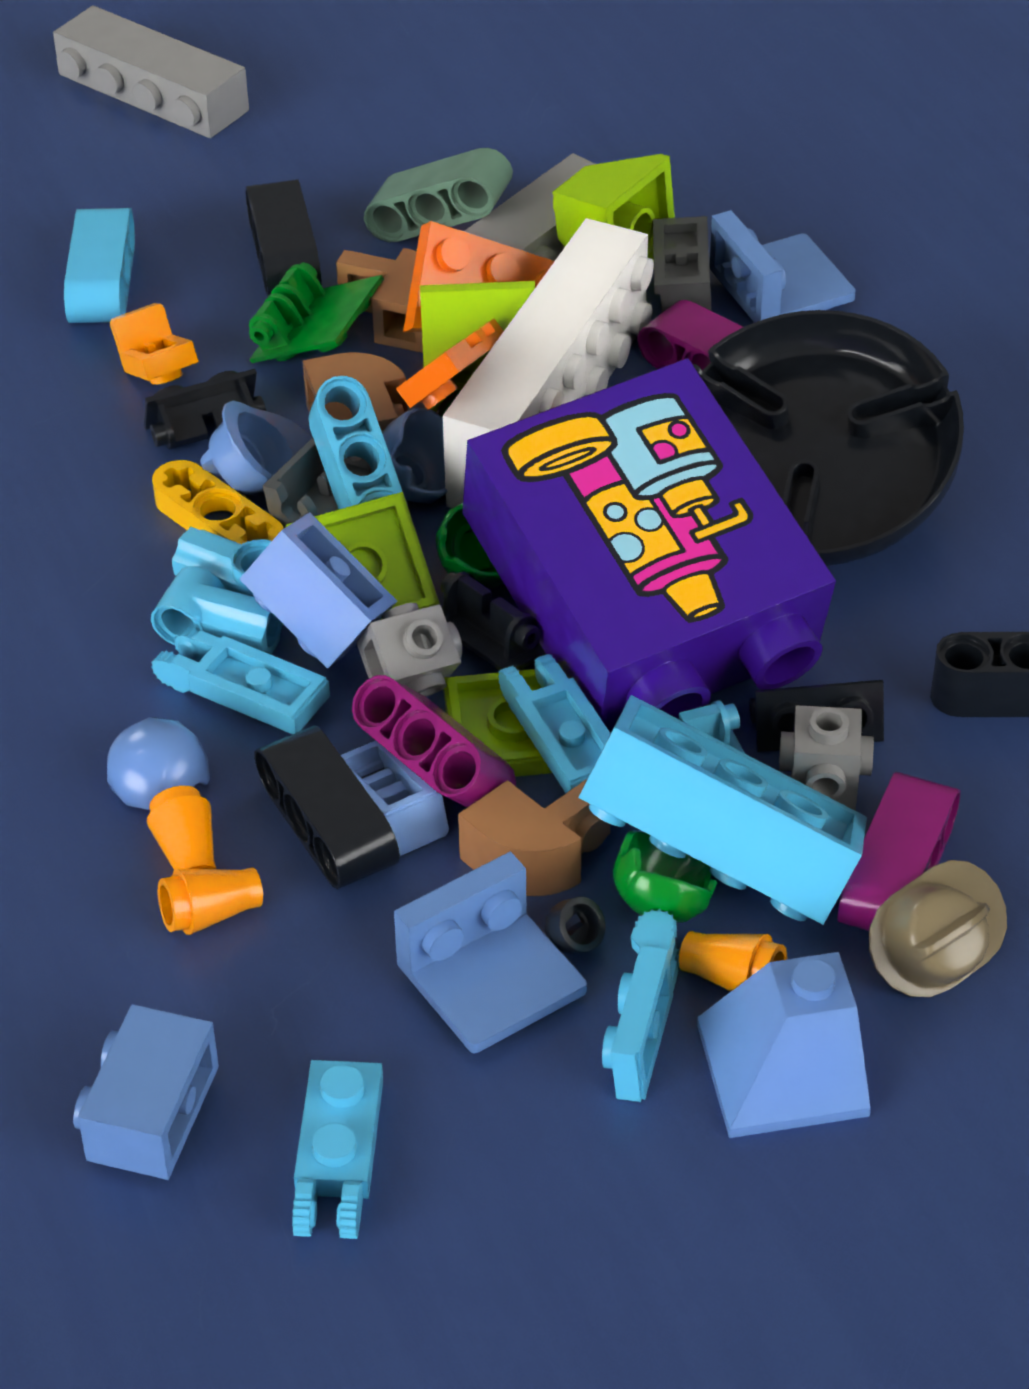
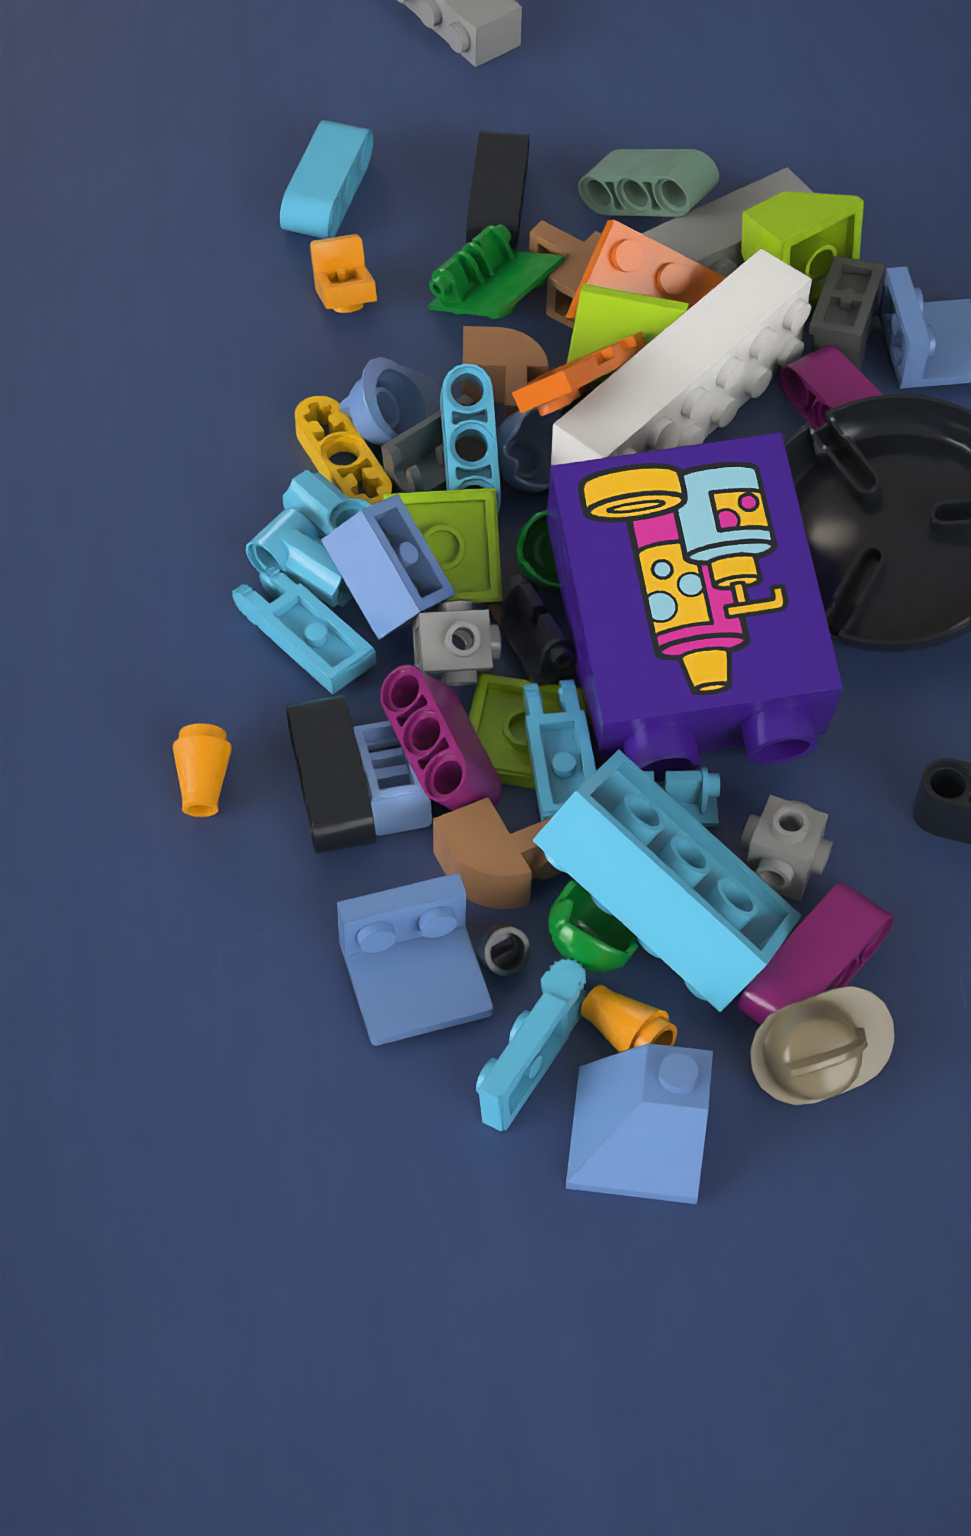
camera: 15 degrees right, 10 degrees up
(147, 1091) = (80, 1006): medium blue brick -> none
(154, 758) = (203, 690): medium blue hair -> none
(179, 412) = (342, 346): black hinge -> none
(204, 897) = (198, 832): light orange cone -> none
(337, 1142) = (226, 1097): medium azure hinge -> none
(775, 708) = (827, 796): black hinge -> none

